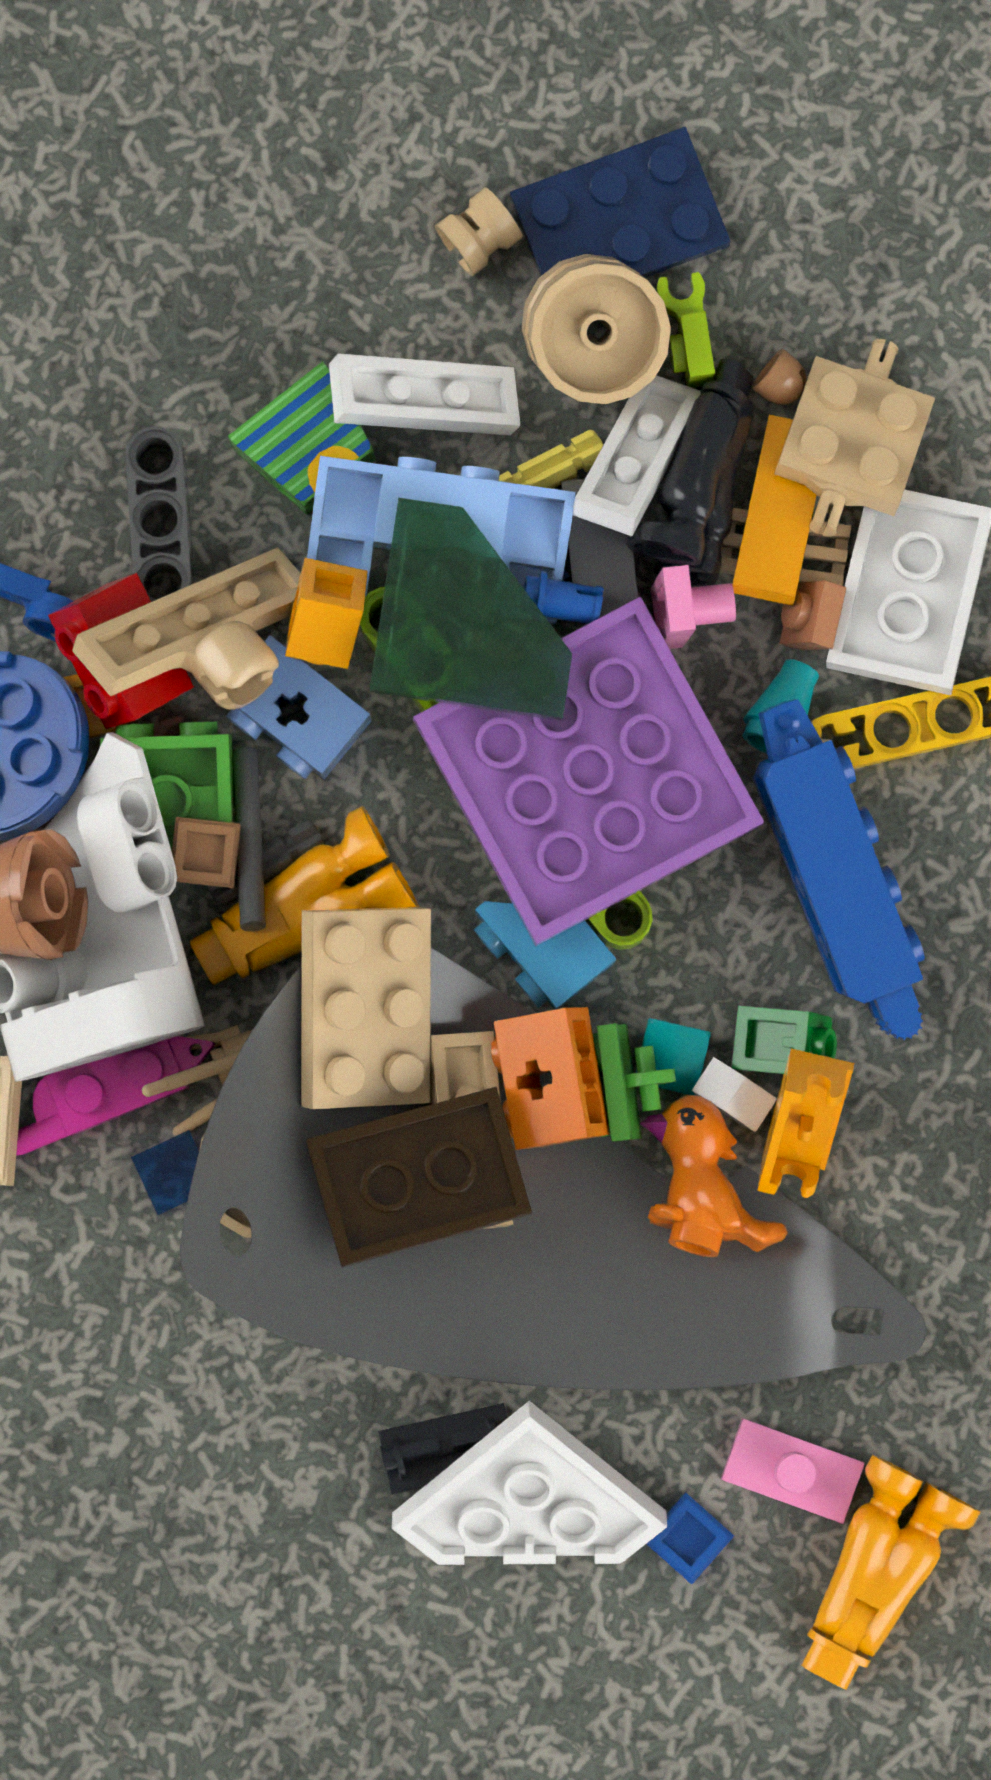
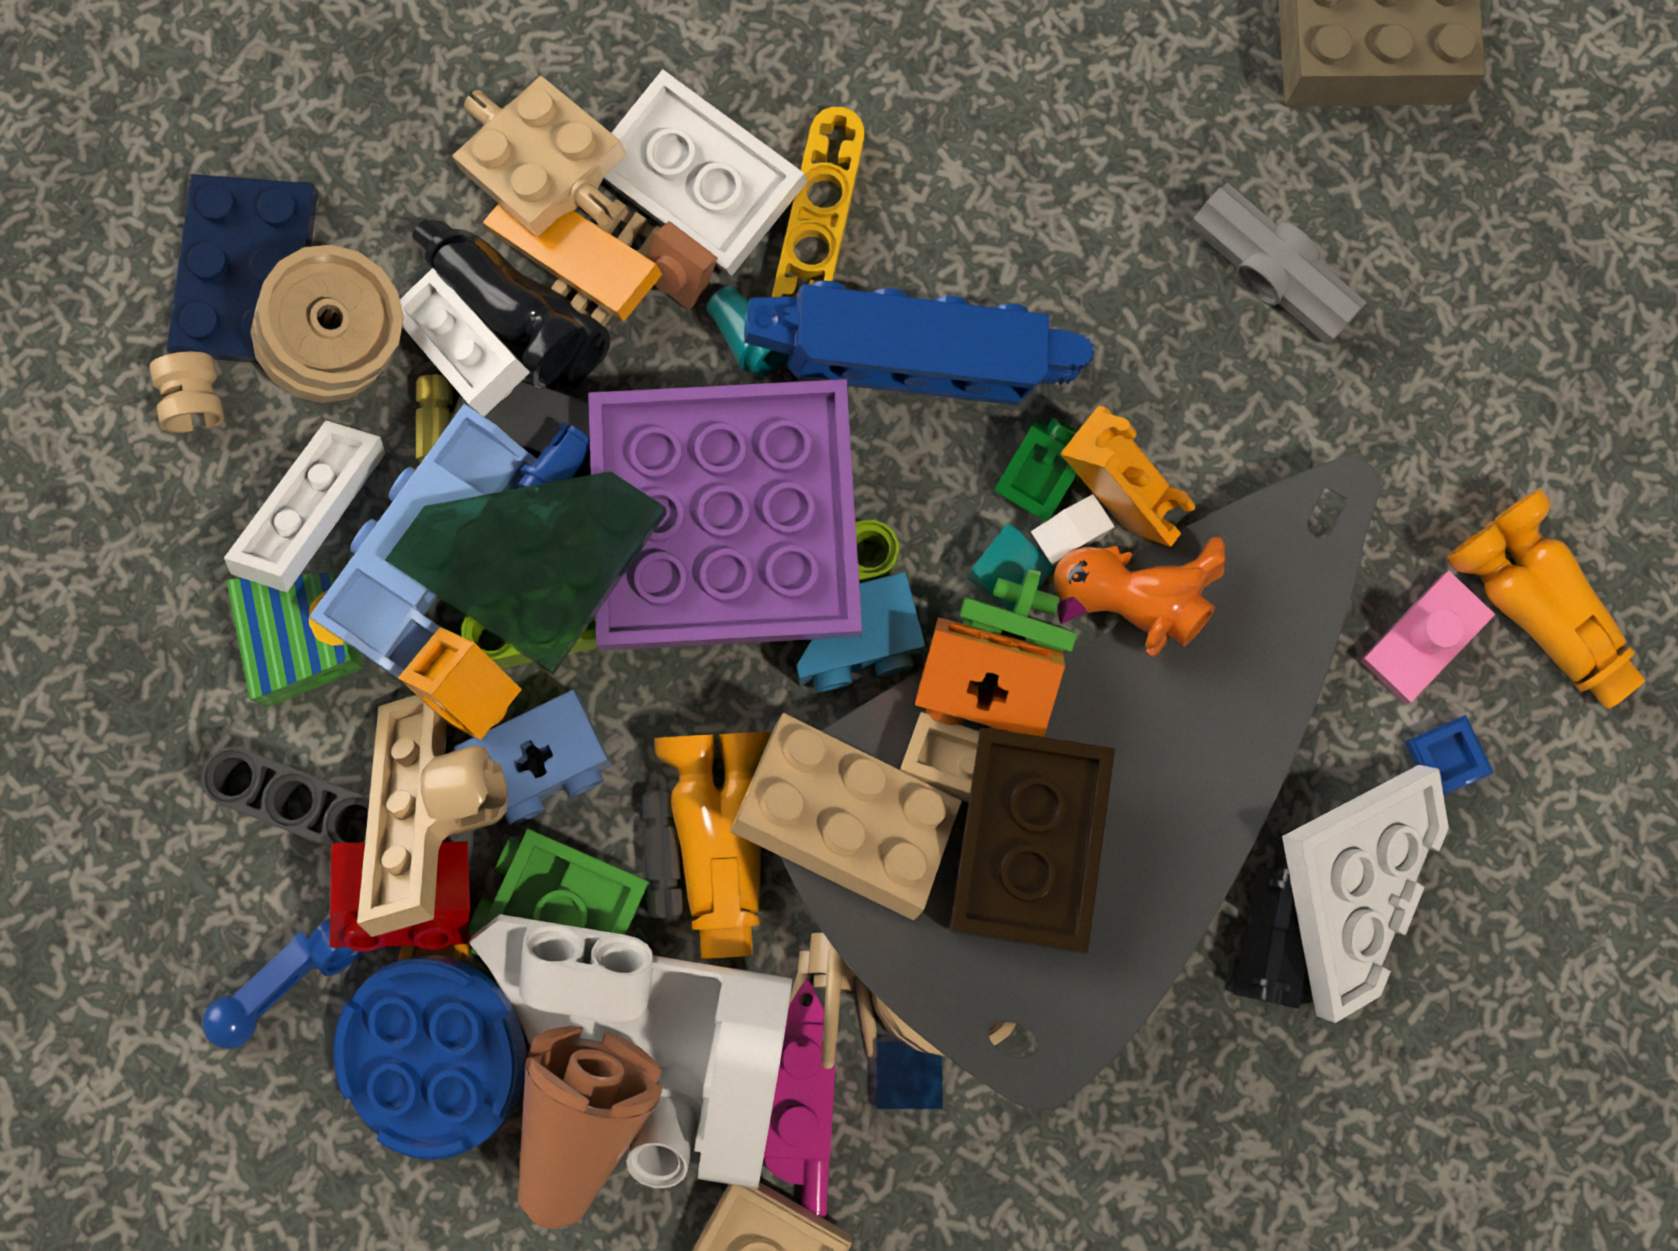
camera: 70 degrees left, 5 degrees down
(206, 851) = (626, 901): medium nougat tile -> none
(250, 842) = (635, 857): dark grey bar -> none
(682, 607) = (614, 361): bright pink tile -> none
(690, 348) = (396, 254): lime plate -> none
(781, 379) = (456, 198): medium nougat hinge -> none

